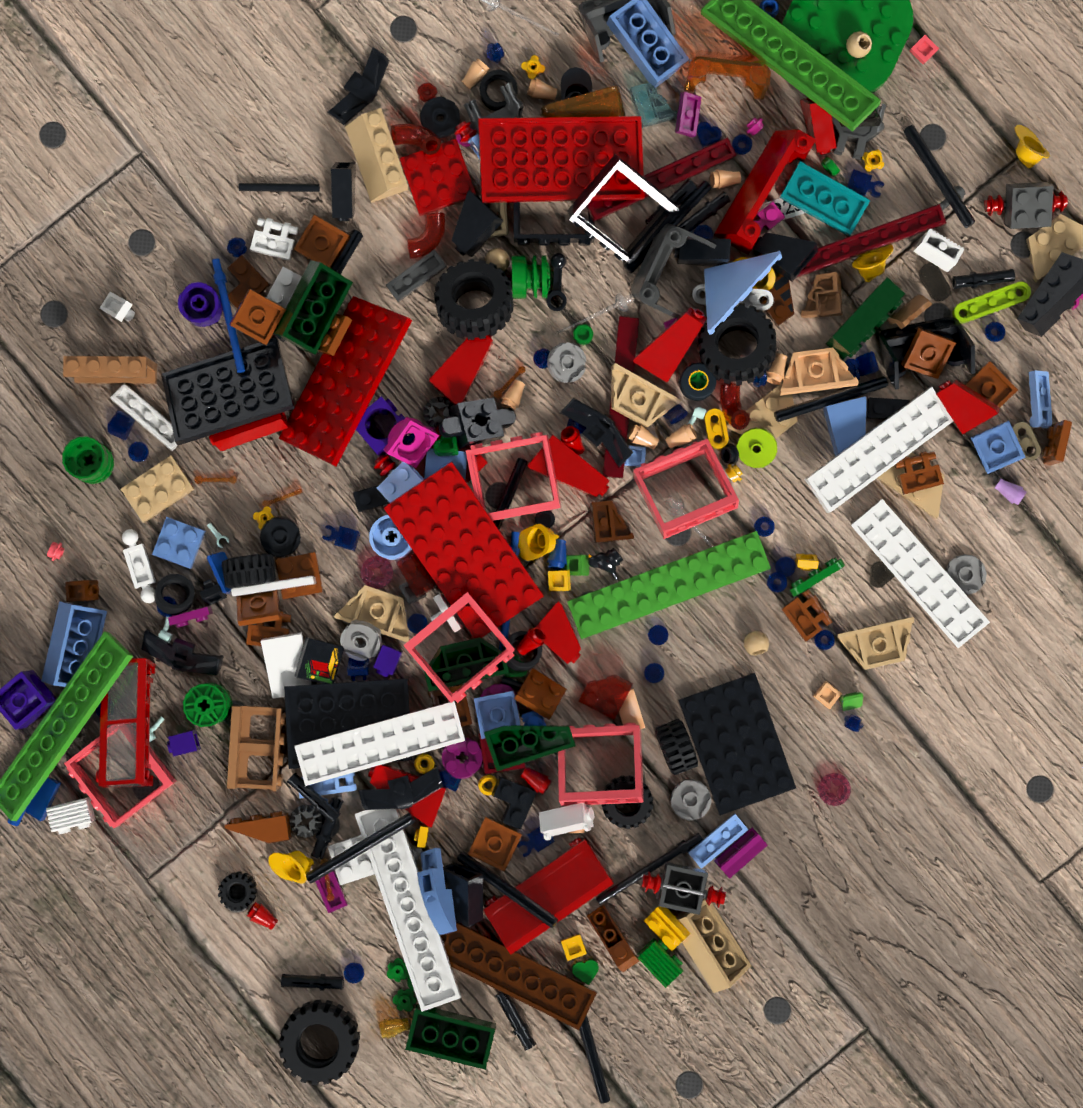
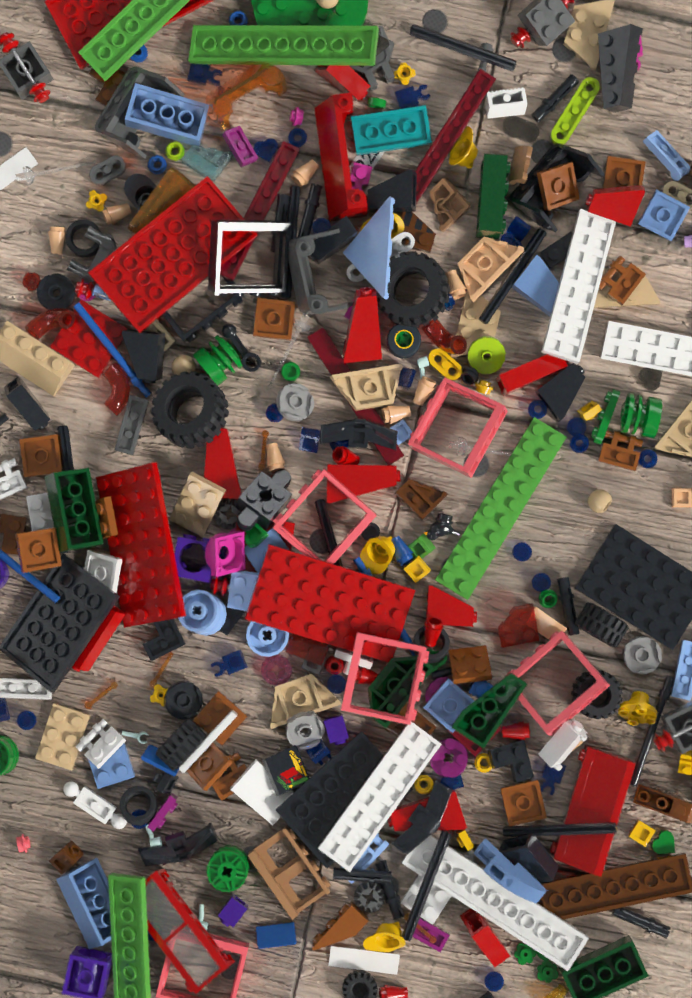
camera: 35 degrees left, 0 degrees up
(183, 524) = (104, 747): none -> white plate
(204, 791) = (276, 935): none -> blue slope
(260, 870) = (364, 960): none -> white sticker
(300, 375) = (104, 568): none -> white plate
(304, 478) = (169, 639): none -> black plate
(353, 477) = (203, 612): none -> light blue wheel
(375, 930) = (485, 937): none -> red slope
(419, 383) = (197, 504): none -> tan plate
(433, 610) = (332, 659): none -> red cone
(446, 634) = (365, 676): none -> red cone
(449, 200) = (112, 350): none -> blue bar
(494, 52) = (59, 212): clear blue plate -> none
(554, 403) = (309, 440): none -> clear blue slope
(562, 47) = (107, 170): none -> dark grey plate
(603, 280) = (274, 319): none -> dark orange plate
(607, 71) = (154, 159): none -> blue plate
(633, 71) = (174, 145): none -> lime plate
(649, 695) = (548, 603): none -> green plate
(651, 841) = (638, 710): none -> yellow plate
(661, 709) = (566, 597): none -> black pin
(704, 29) = (201, 74): none -> clear blue plate
(781, 491) = (529, 373): none -> red slope
(796, 526) = (561, 390): none -> black slope
(846, 598) = (636, 414): none -> green wheel
(1000, 331) = (597, 126): clear blue plate -> none

